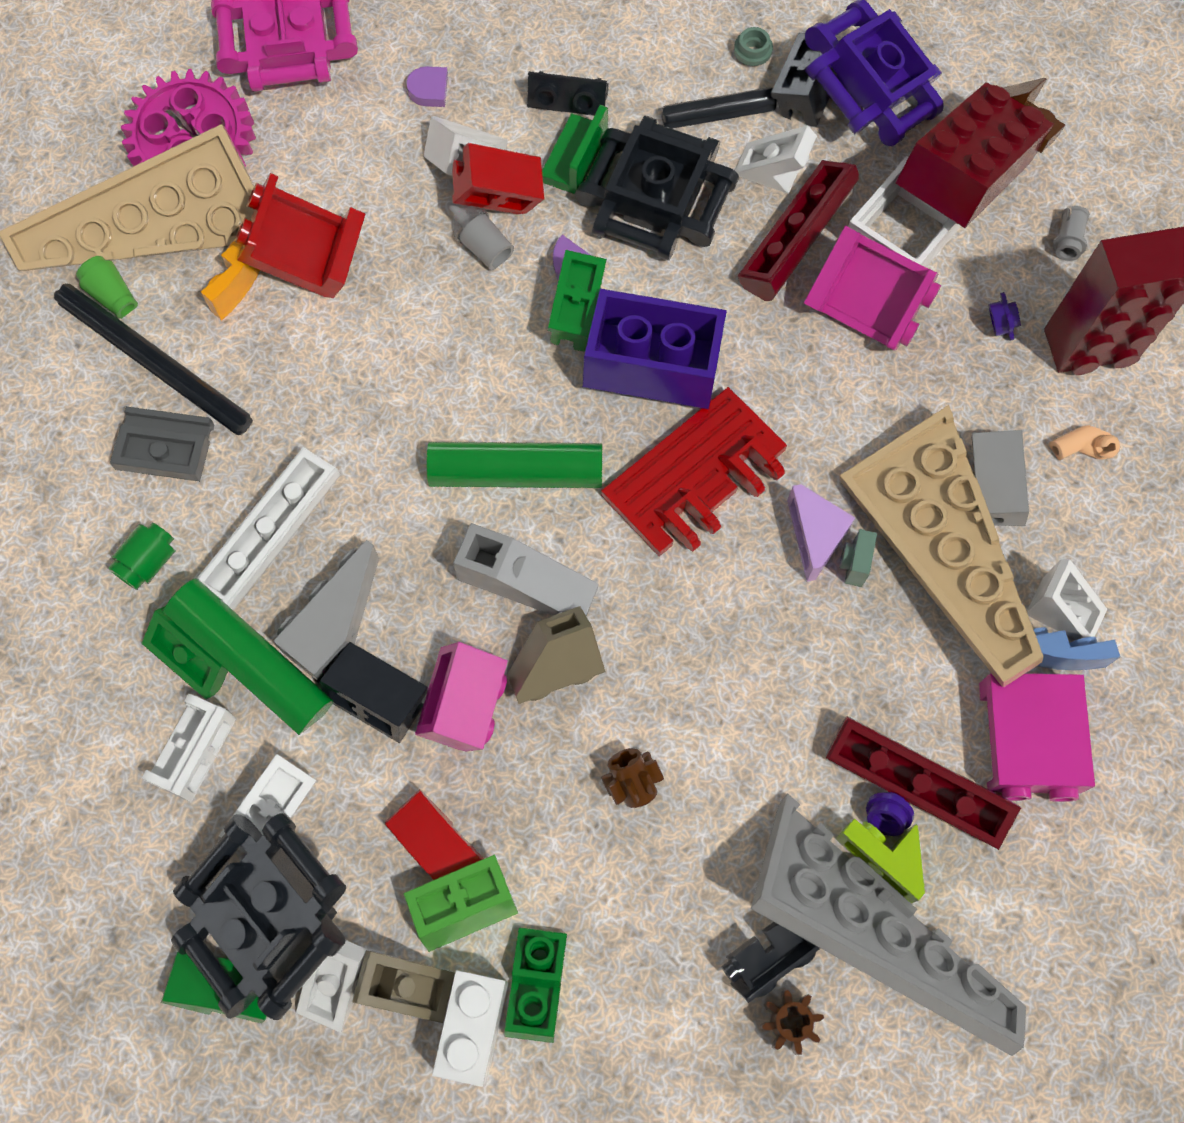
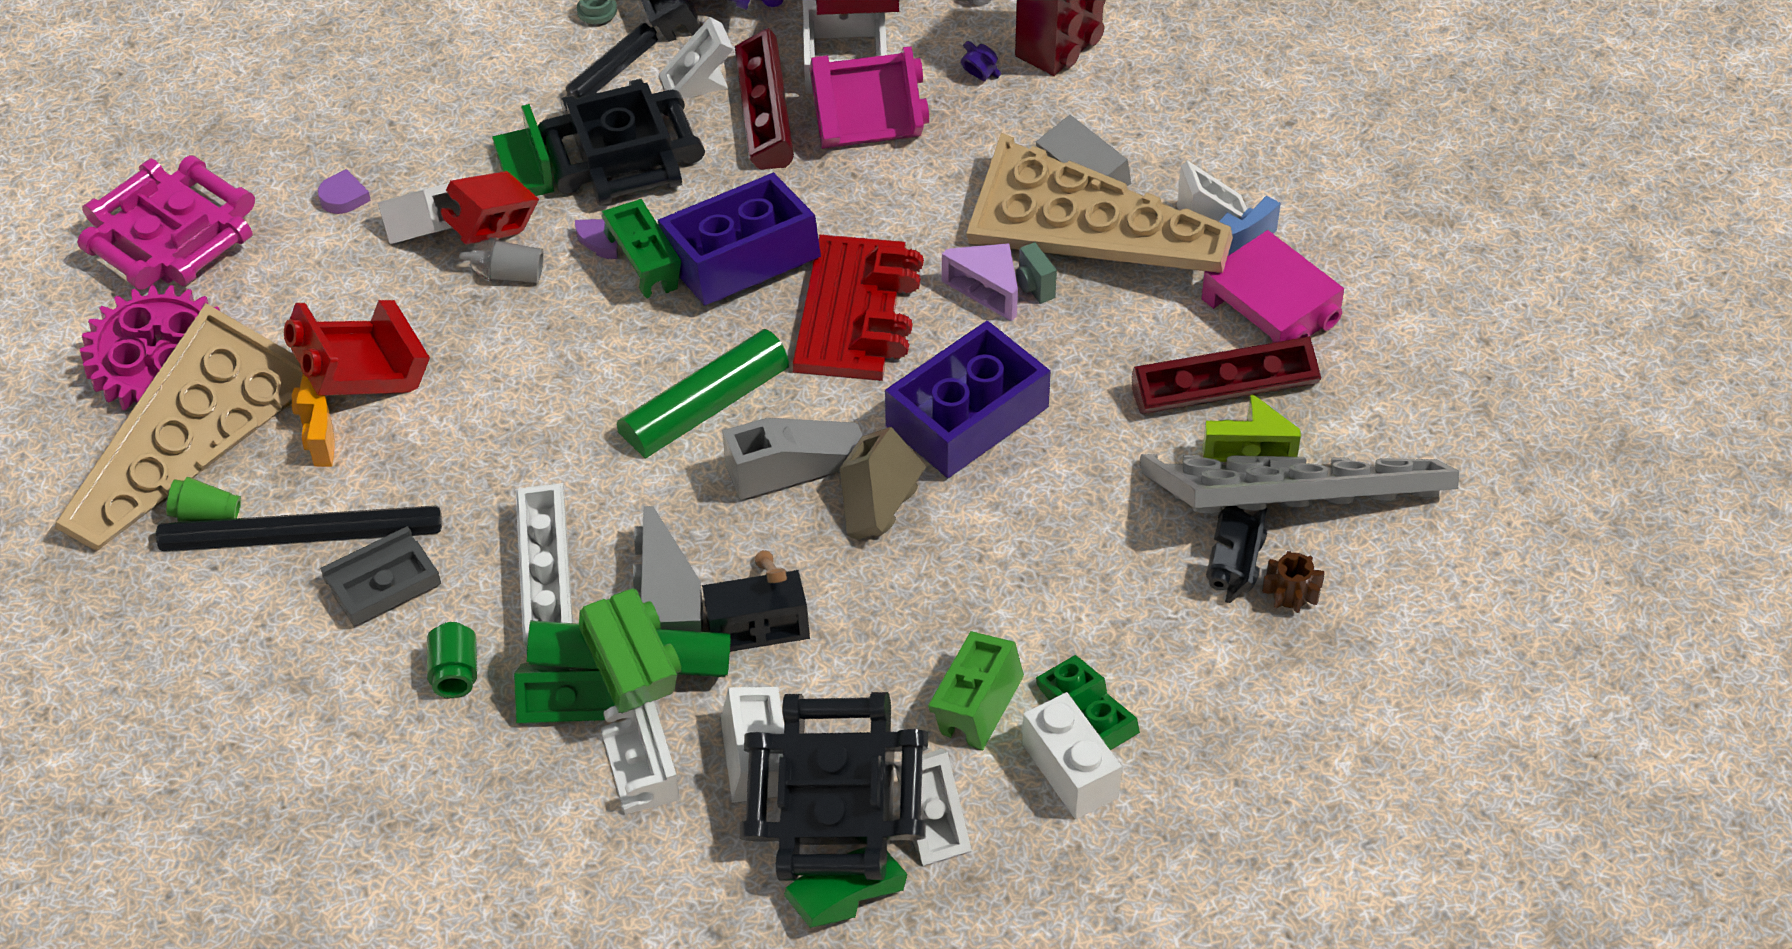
camera: 40 degrees left, 20 degrees down
(222, 670) = (629, 650): none -> bright green brick
(394, 685) = (764, 560): none -> medium nougat hinge
(403, 987) = (990, 767): dark tan slope -> none
(431, 837) = (904, 666): red slope -> none
(462, 697) = (832, 559): piece -> none
(566, 93) = (473, 125): black hinge -> none
(632, 778) = (1019, 518): reddish brown gear -> none
(693, 636) = (967, 398): none -> dark purple brick
(889, 813) = (1237, 406): dark purple plate -> none
(1087, 441) = (1120, 102): light nougat arm -> none

